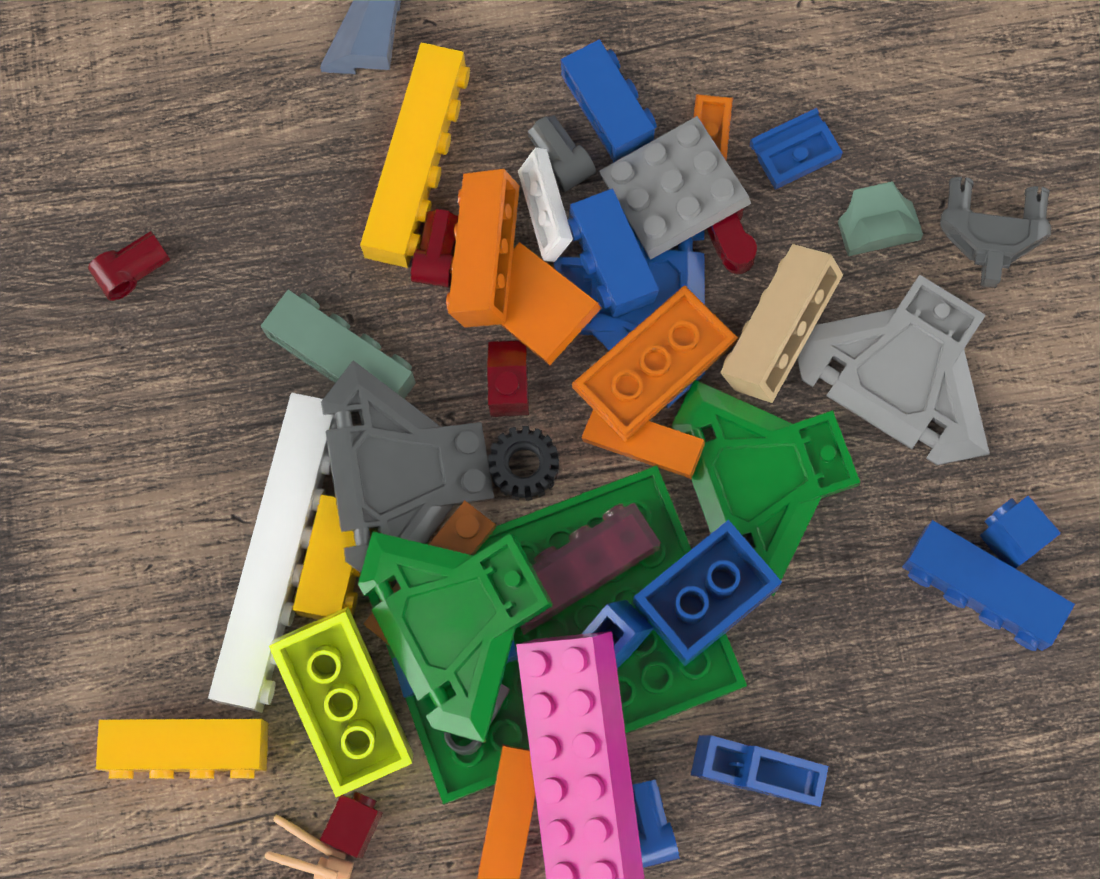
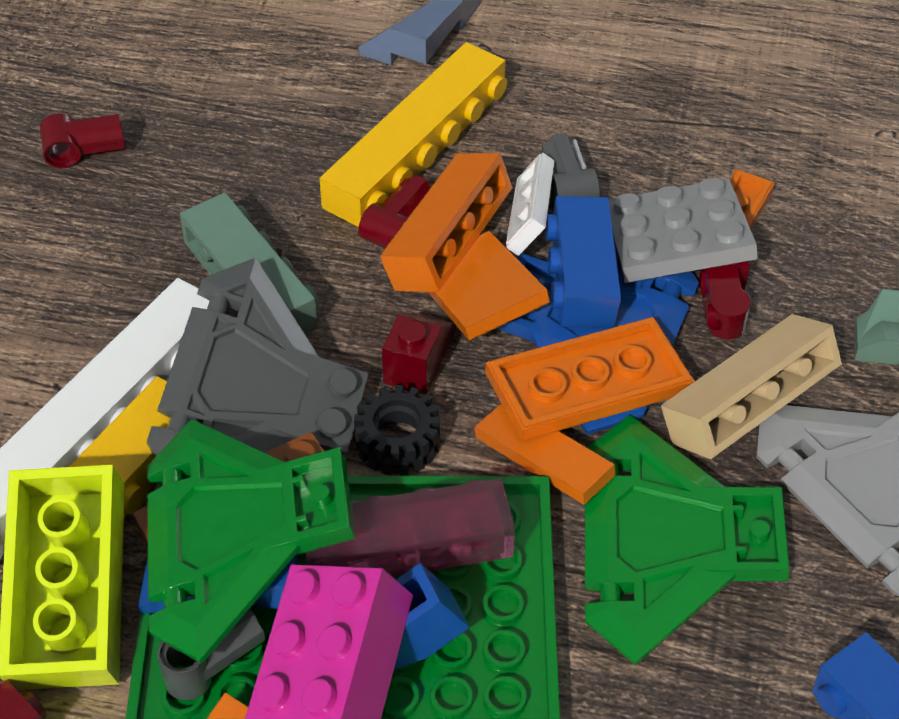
camera: 15 degrees right, 25 degrees down
(608, 99) = (638, 142): blue brick -> none
(706, 592) = (549, 608): blue brick -> none
(795, 148) = (828, 242): blue plate -> none

